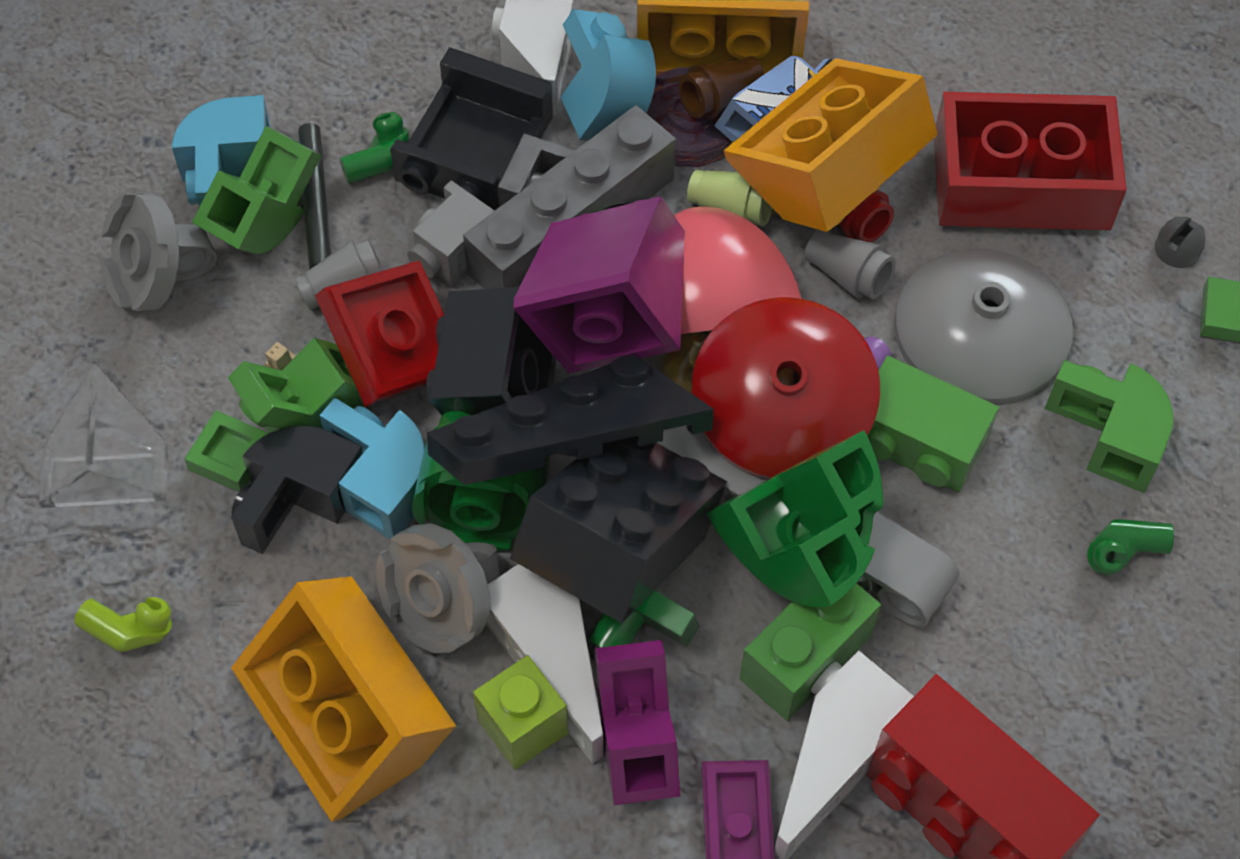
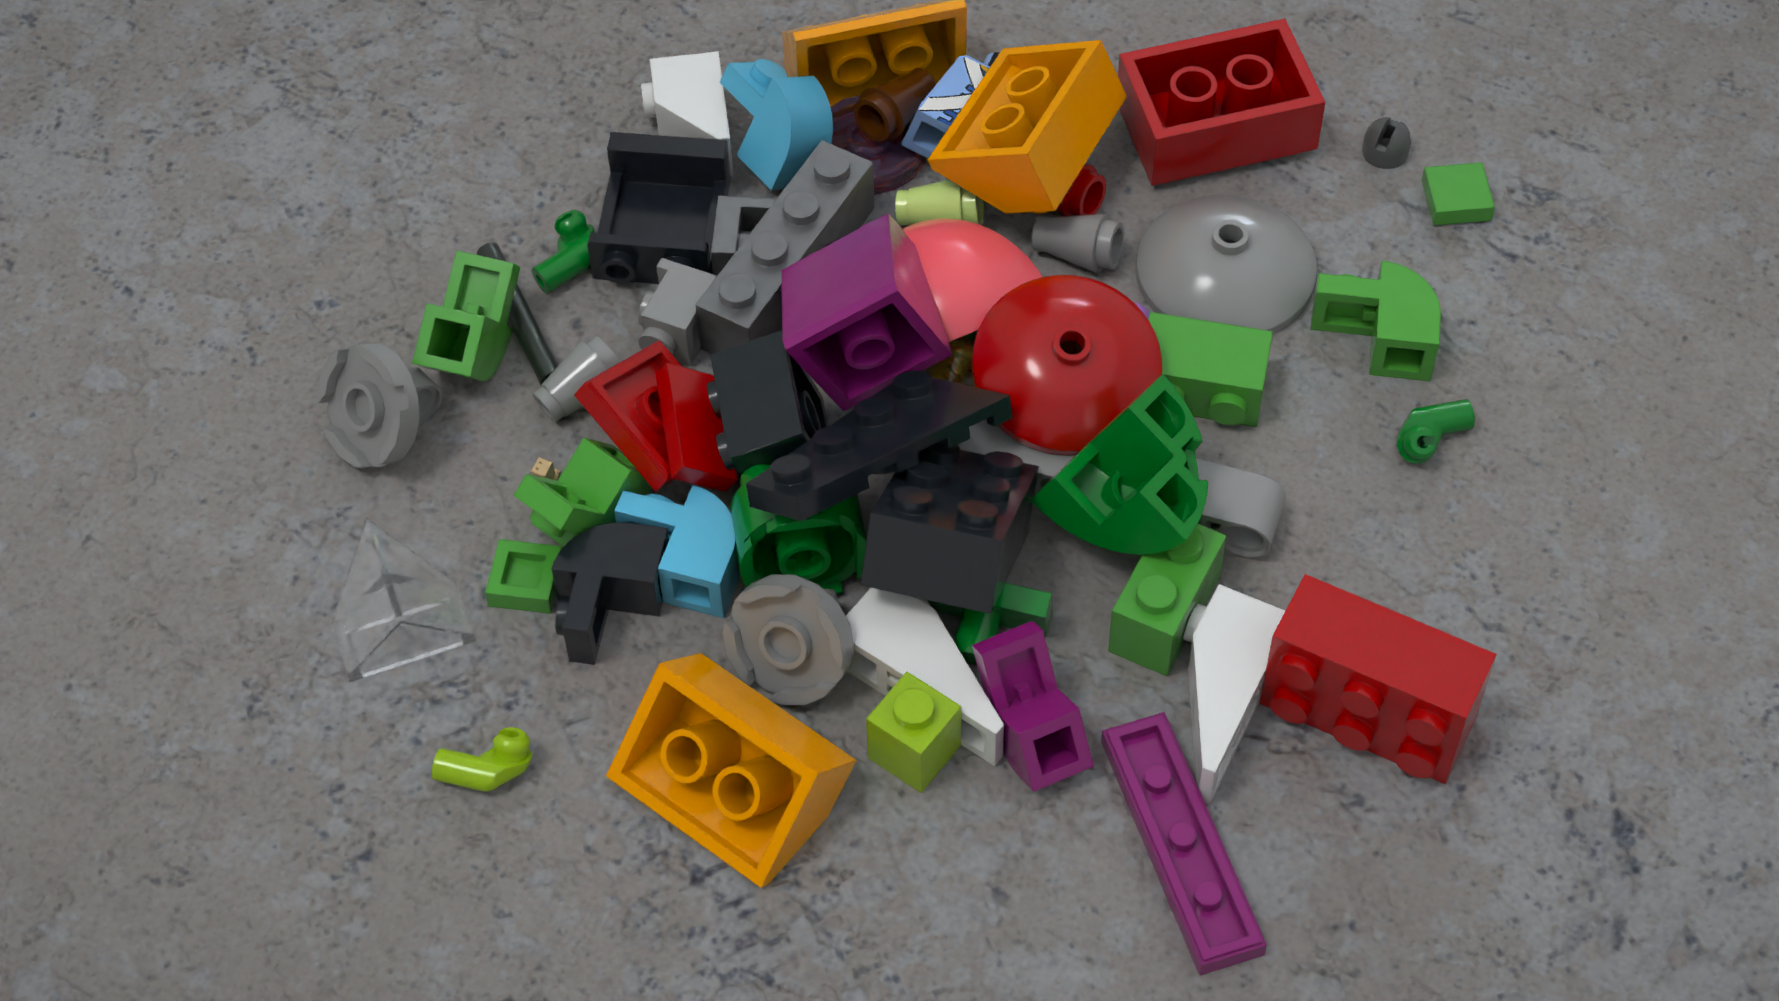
camera: 15 degrees left, 5 degrees down
(217, 138) = (402, 281): medium azure brick -> none
(413, 354) = (691, 428): none -> red tile

